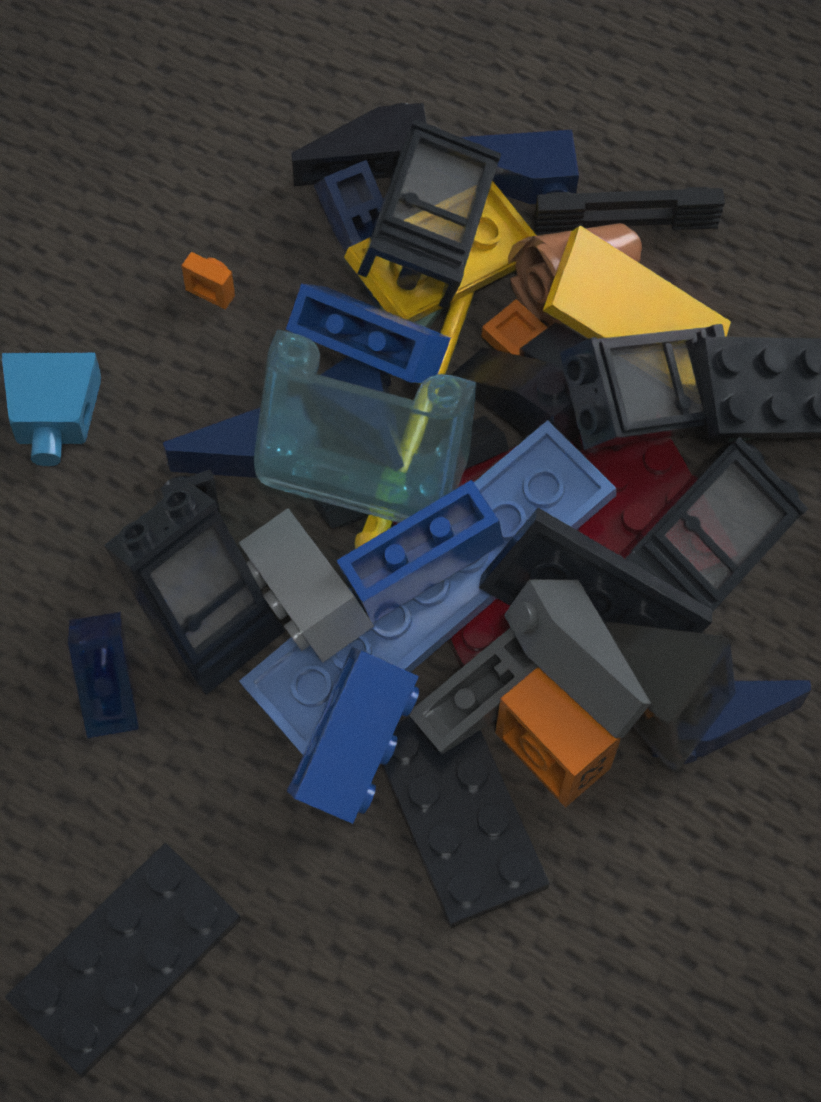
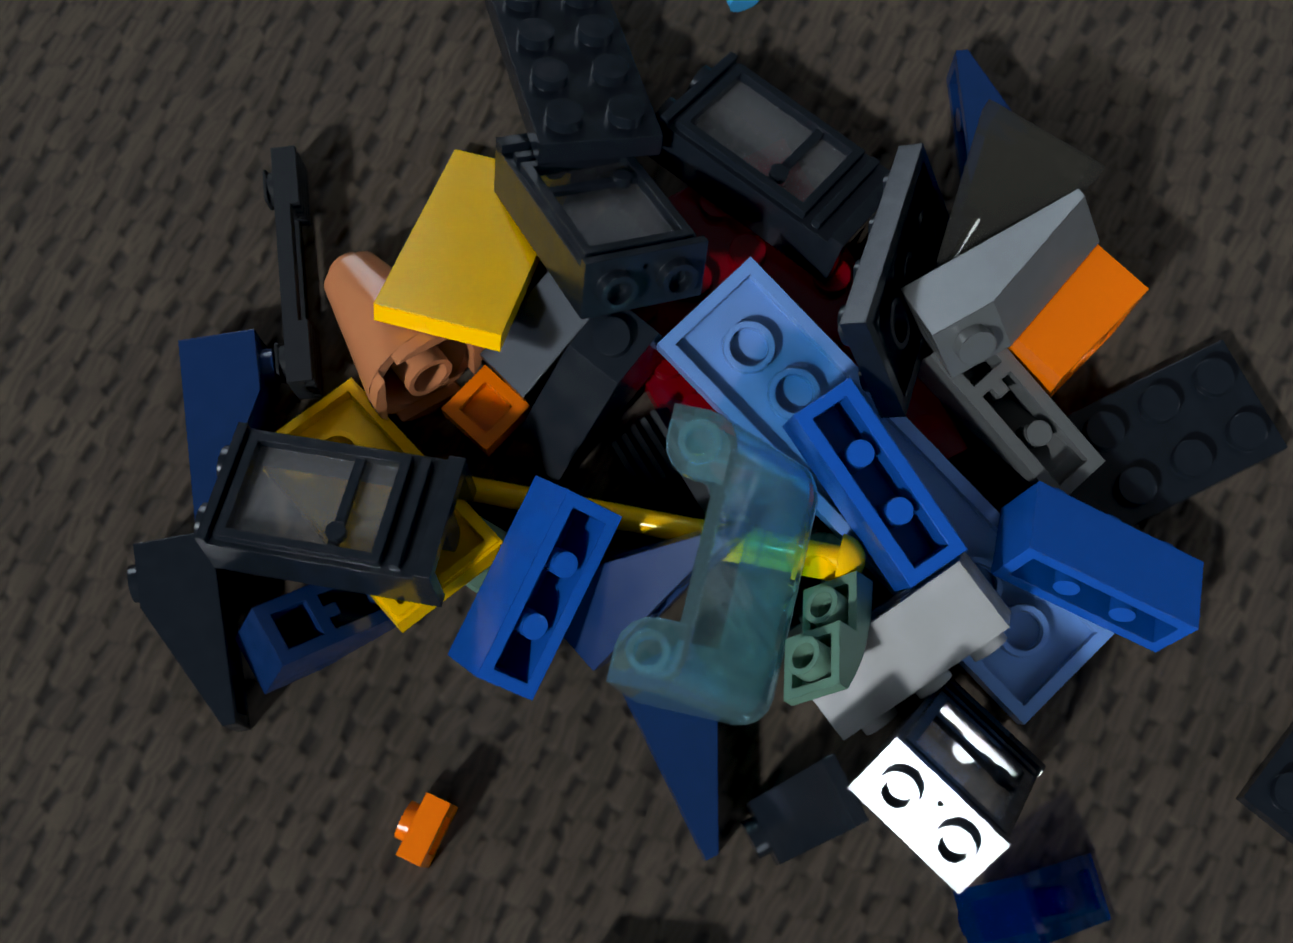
camera: 90 degrees left, 10 degrees up
(296, 510) = (831, 640): none -> sand green slope

